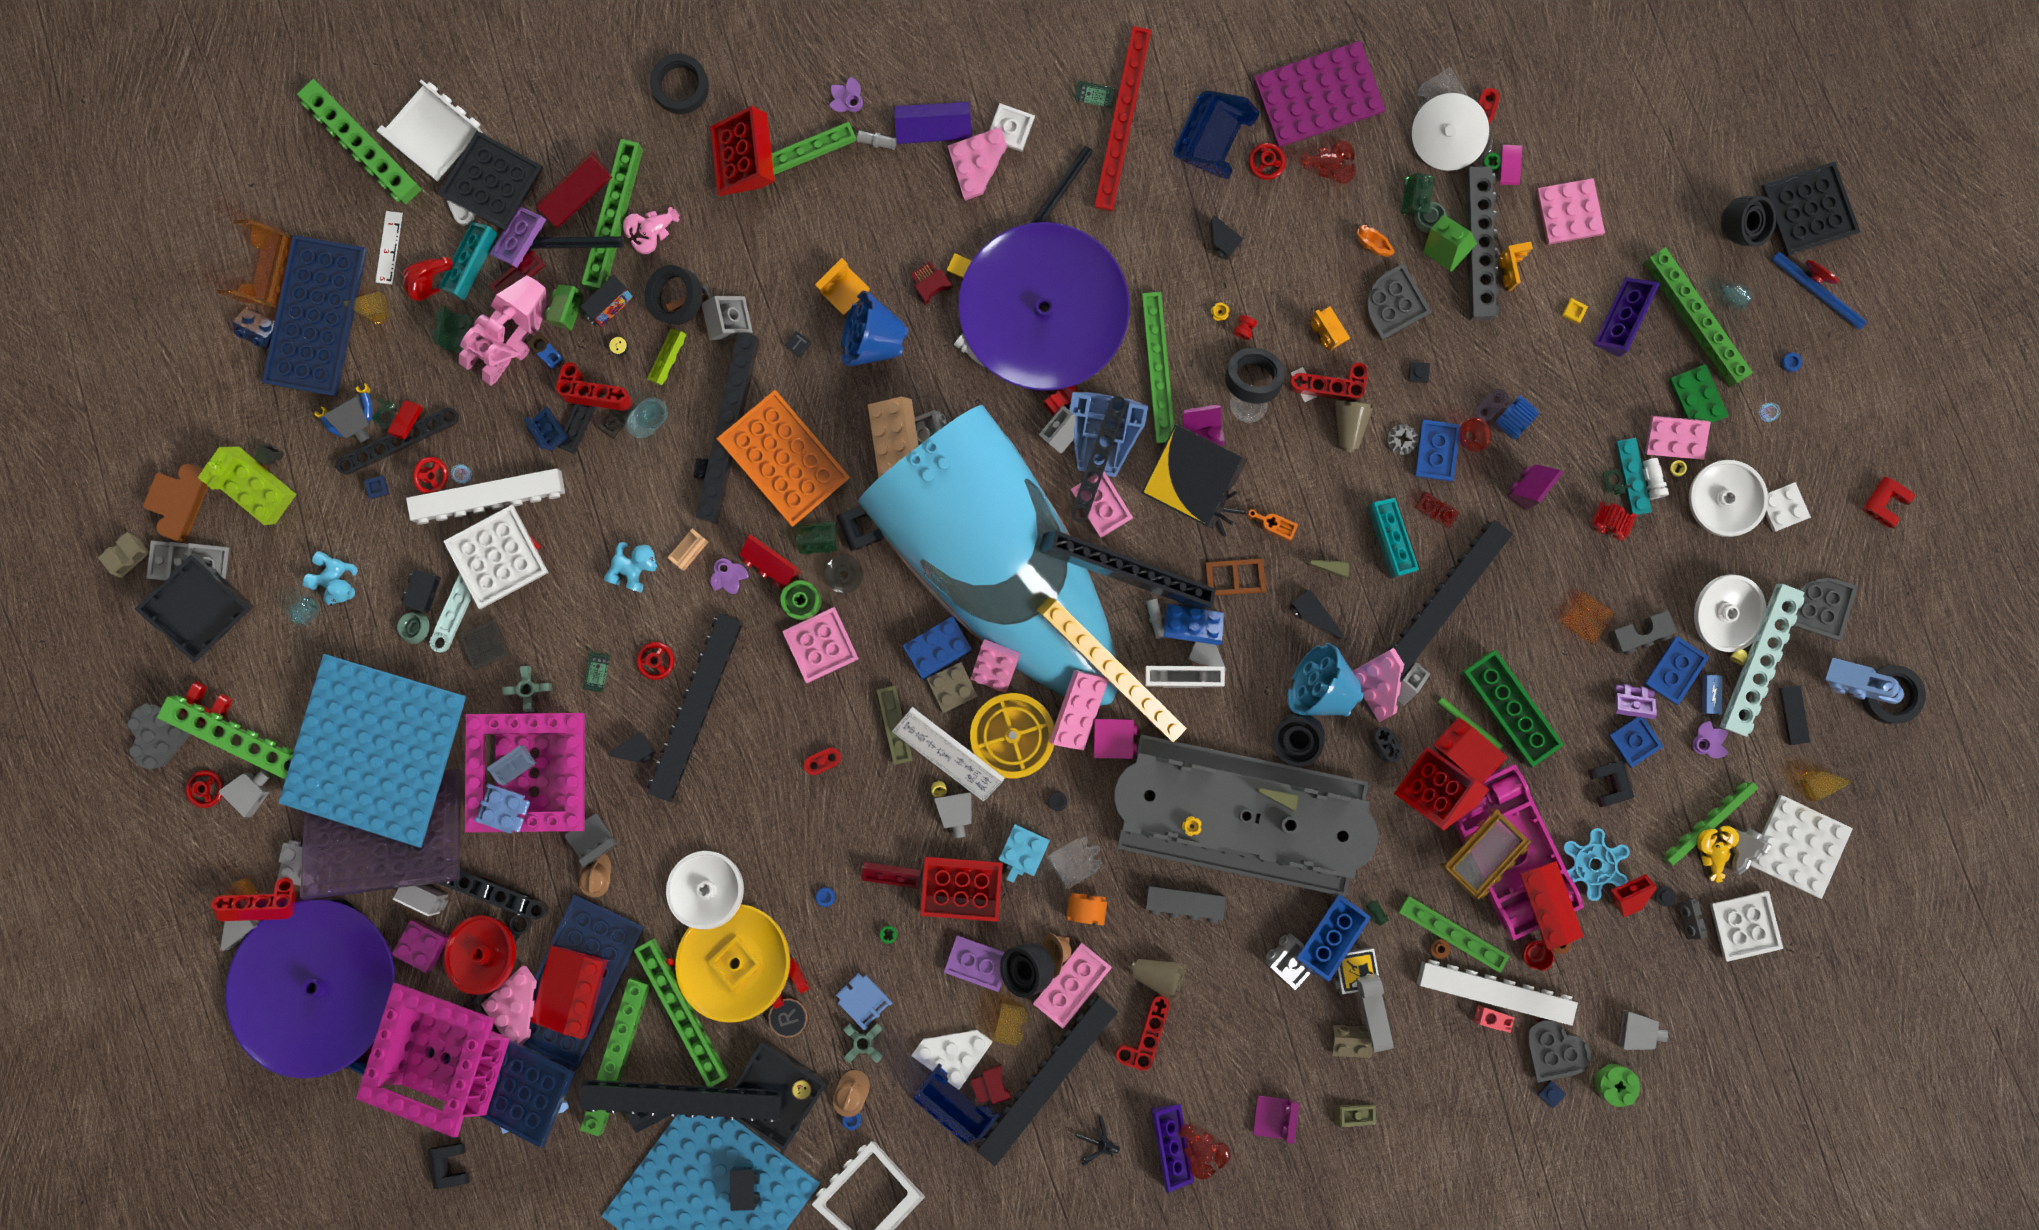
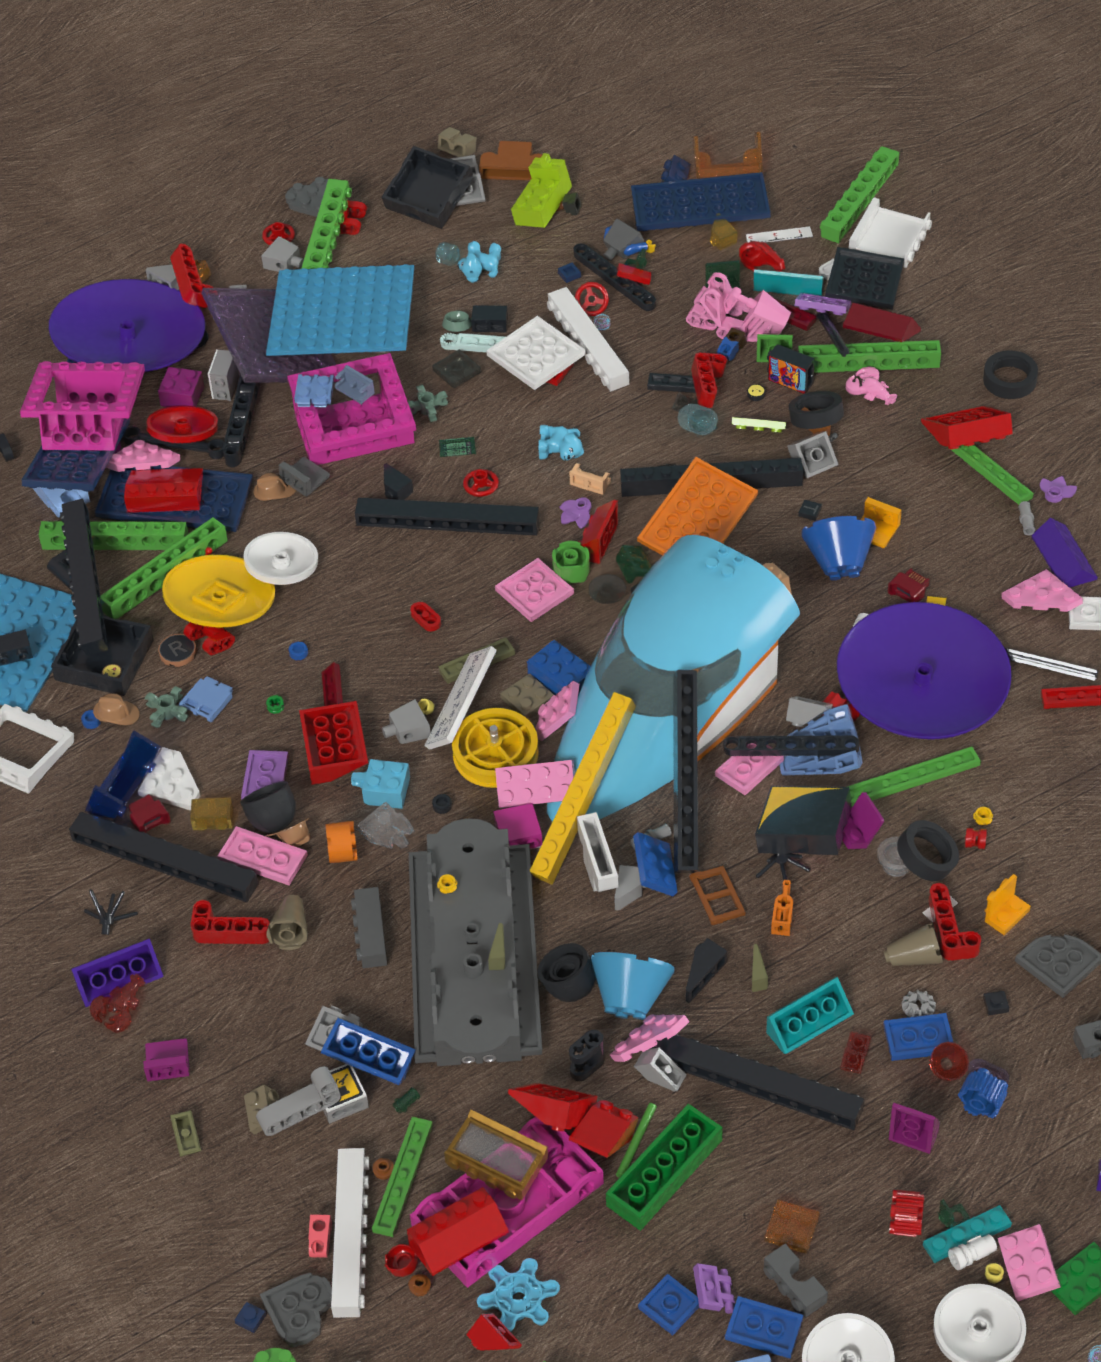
camera: 75 degrees right, 35 degrees down
(546, 429) = (659, 360): dark blue bracket -> none
(1224, 239) = (1057, 799): black slope -> none
(1619, 780) = (618, 1299): black connector -> none

